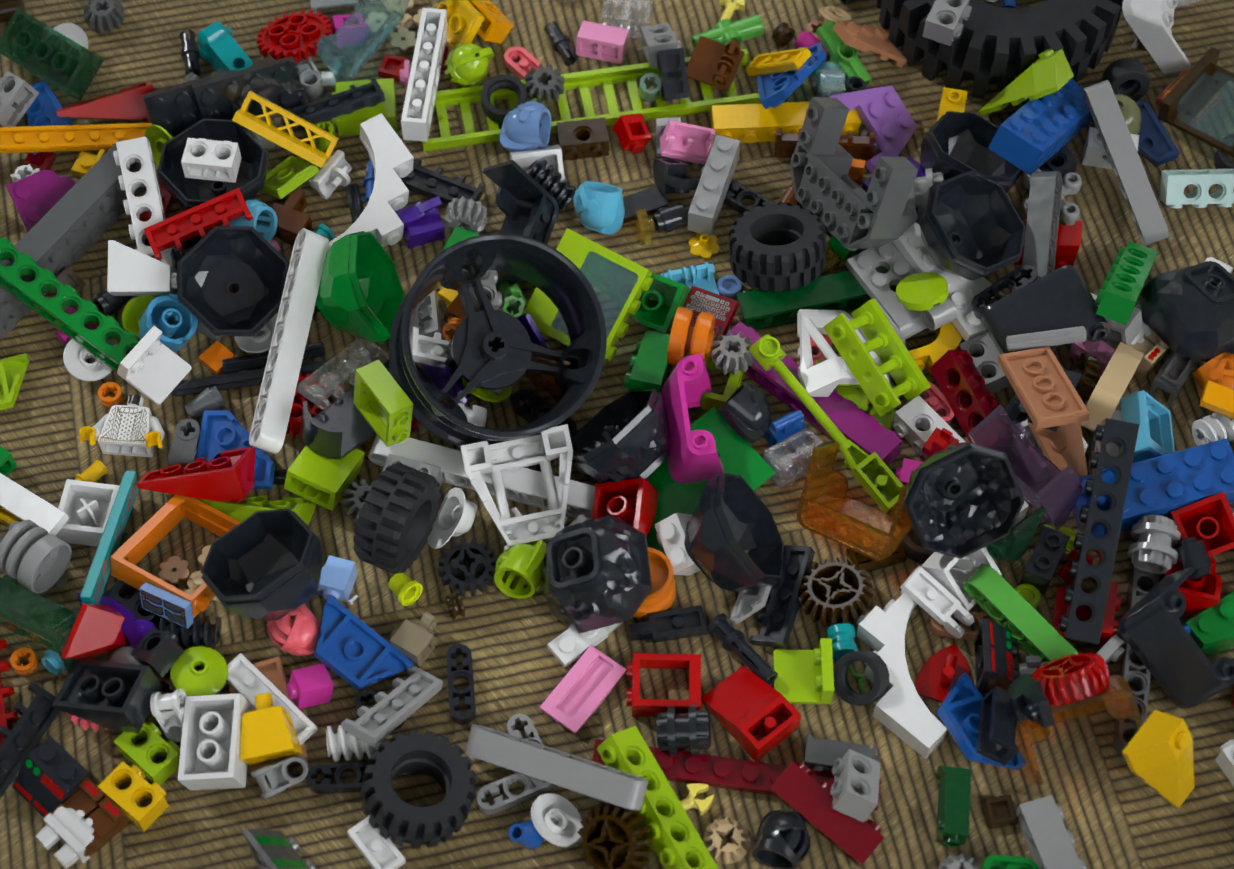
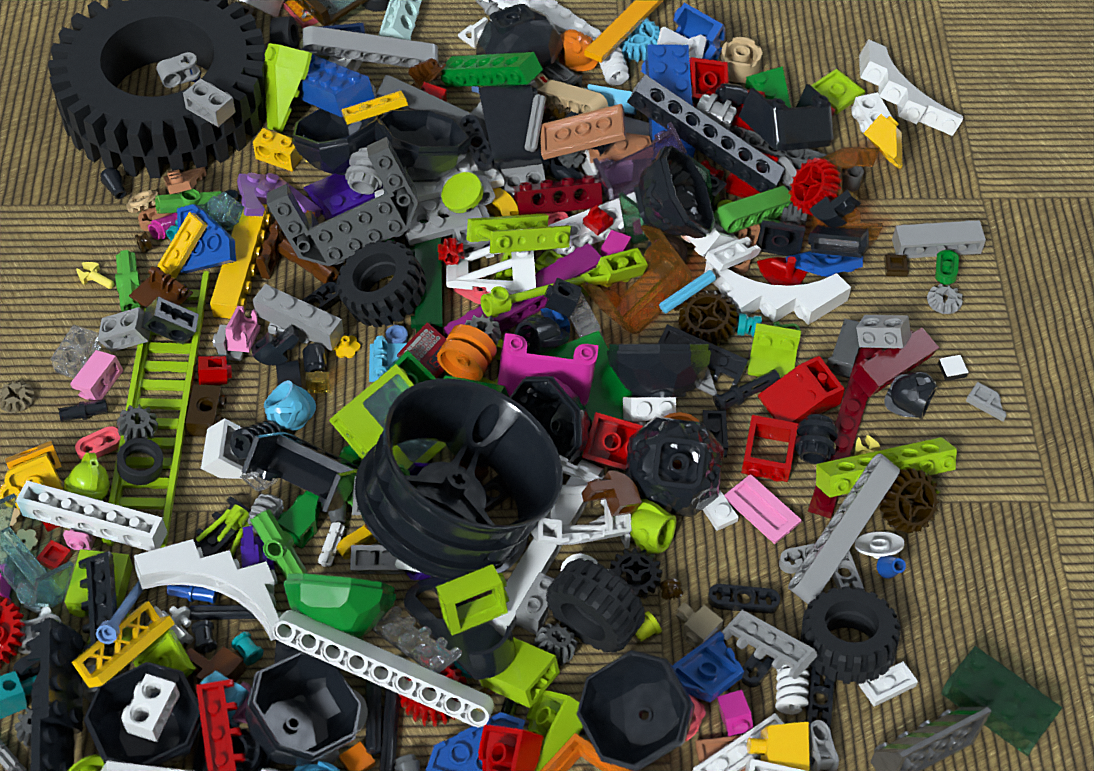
camera: 80 degrees left, 5 degrees down
(285, 108) = (109, 629): none -> medium blue piece
(325, 203) = (200, 633): none -> black bush
(426, 232) = (271, 535): none -> bright green piece
(449, 189) = (235, 519): none -> lime plant
(526, 127) = (187, 444): medium blue helmet -> none
(542, 518) = (617, 490): none -> reddish brown brick
(653, 94) = (170, 345): sand green gear -> none
(729, 853) = (893, 432): tan gear -> none
(789, 425) = (562, 297): none -> black brick
(842, 302) = (451, 251): none -> red gear
(862, 559) = (687, 291): none -> medium azure axle
(879, 670) = (801, 305): black tyre -> none
(953, 805) = (893, 287): dark green window -> none
(1006, 172) = (374, 107): none -> yellow tile
(1117, 234) = (425, 72): none -> reddish brown hinge

